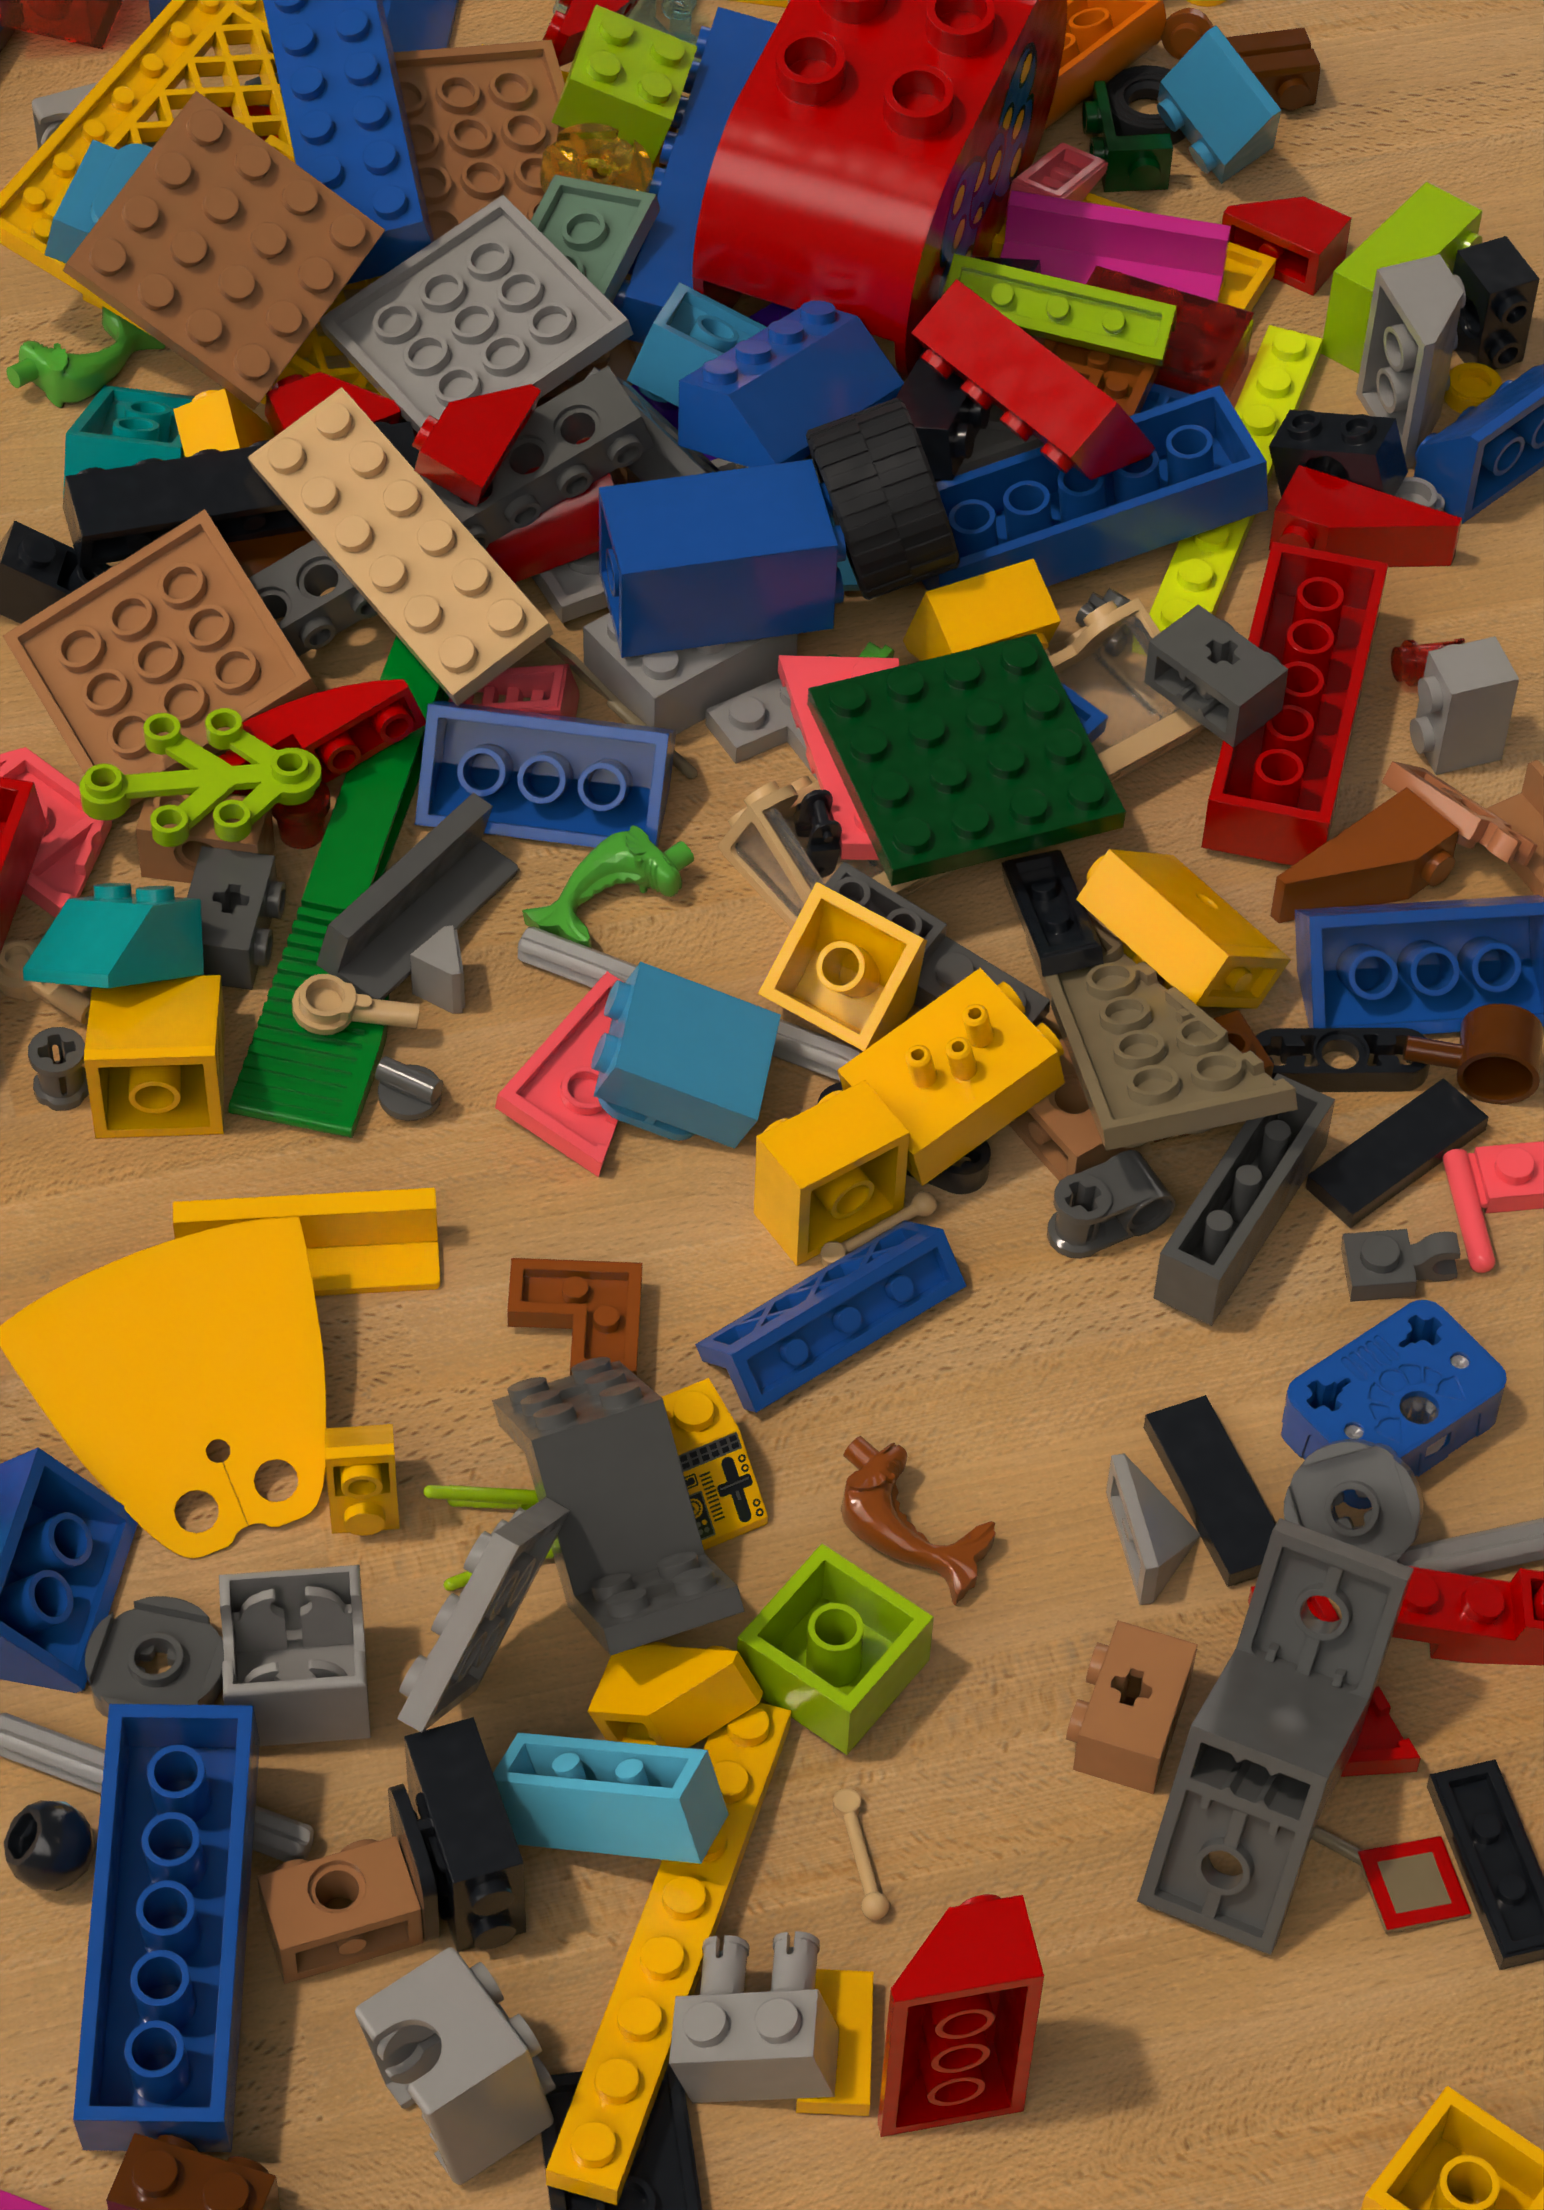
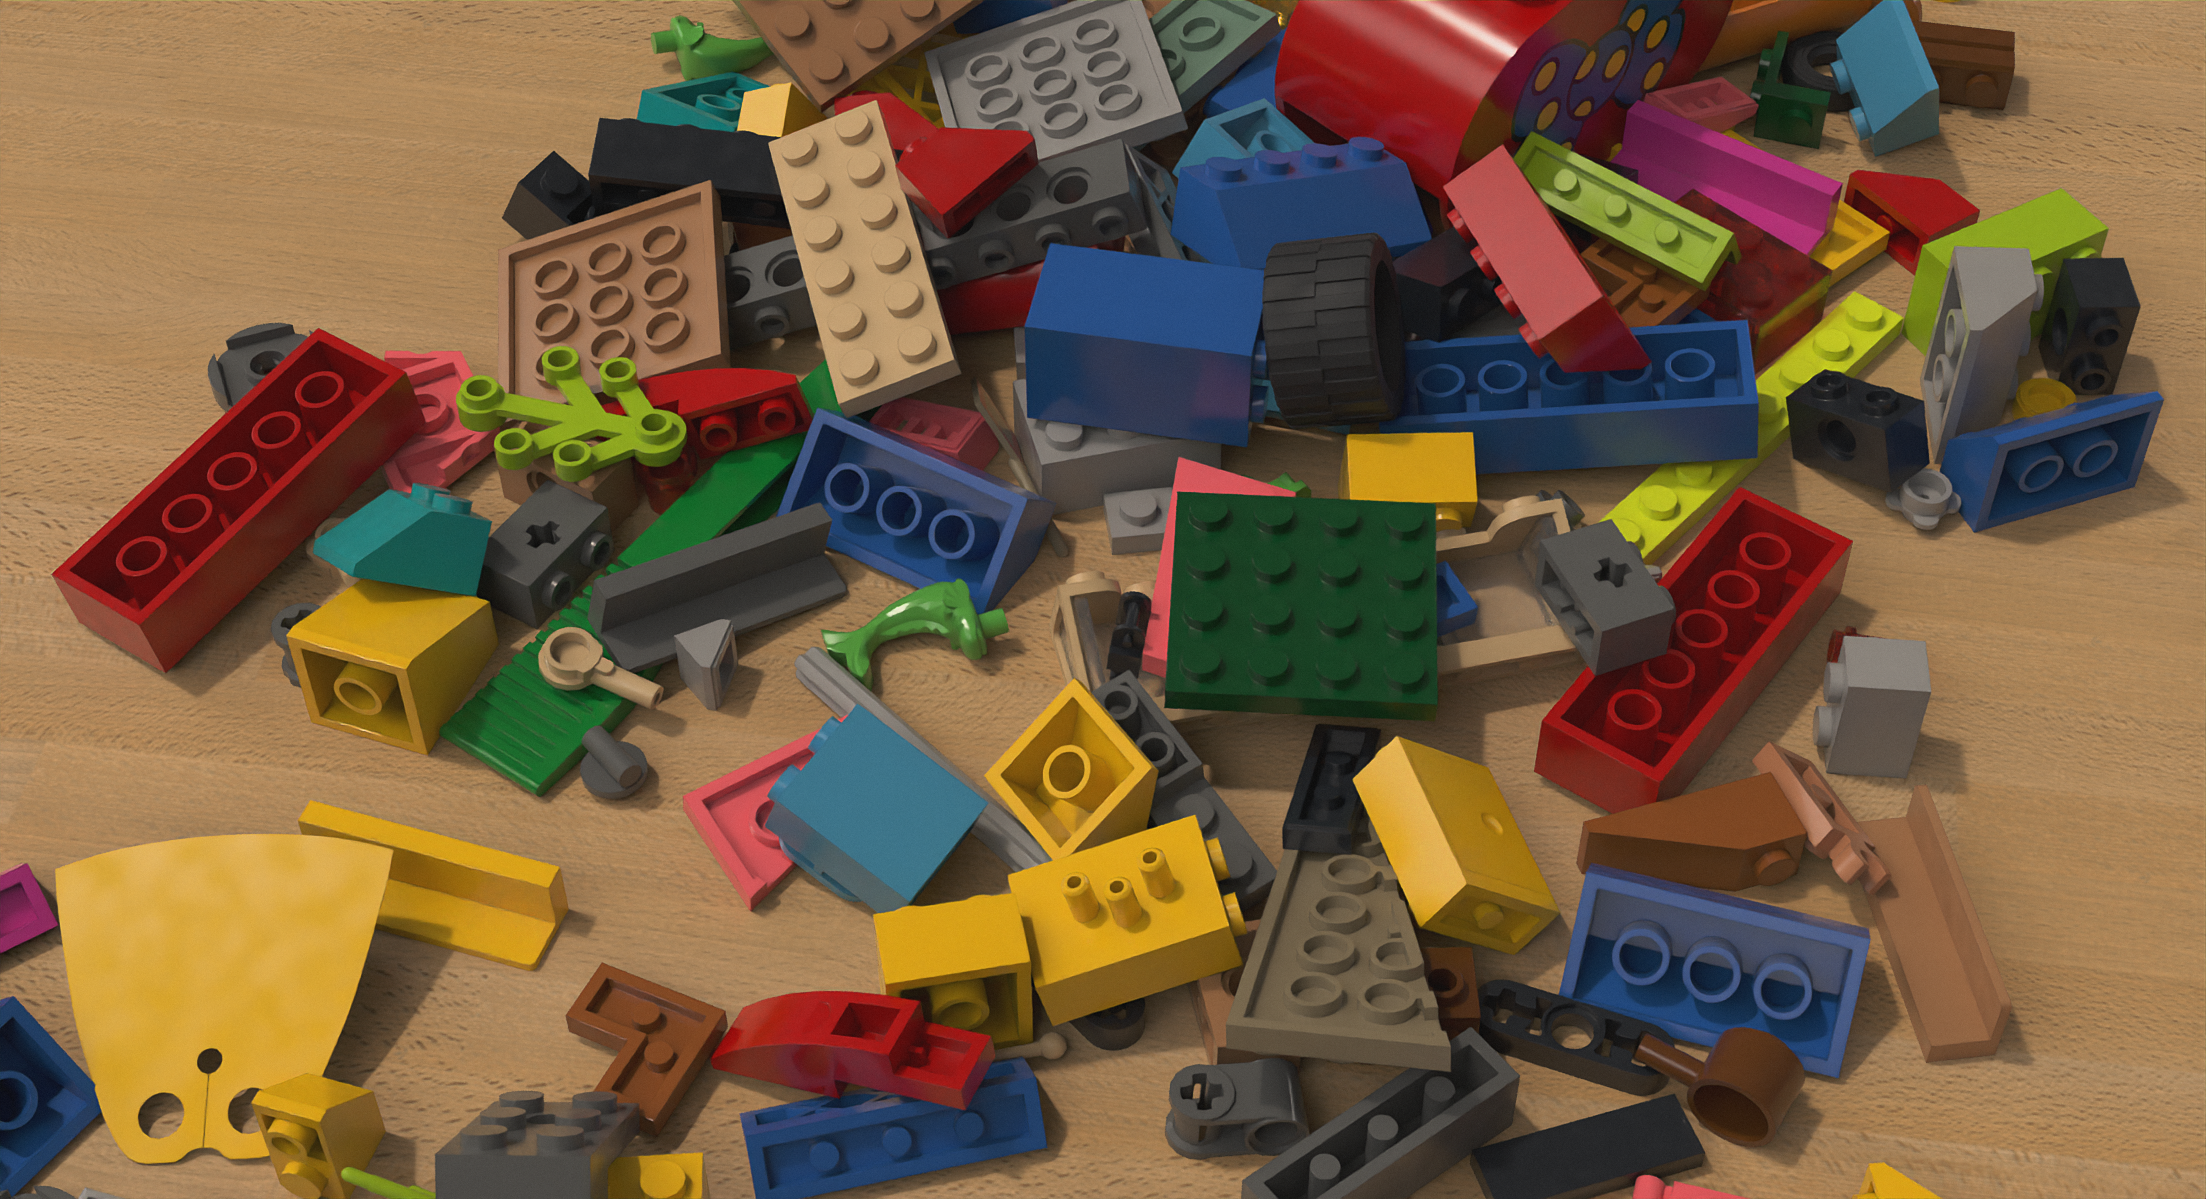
camera: 25 degrees right, 5 degrees down
(773, 1246) = (855, 1038): none -> red slope
(1362, 522) = (1857, 500): red slope -> none

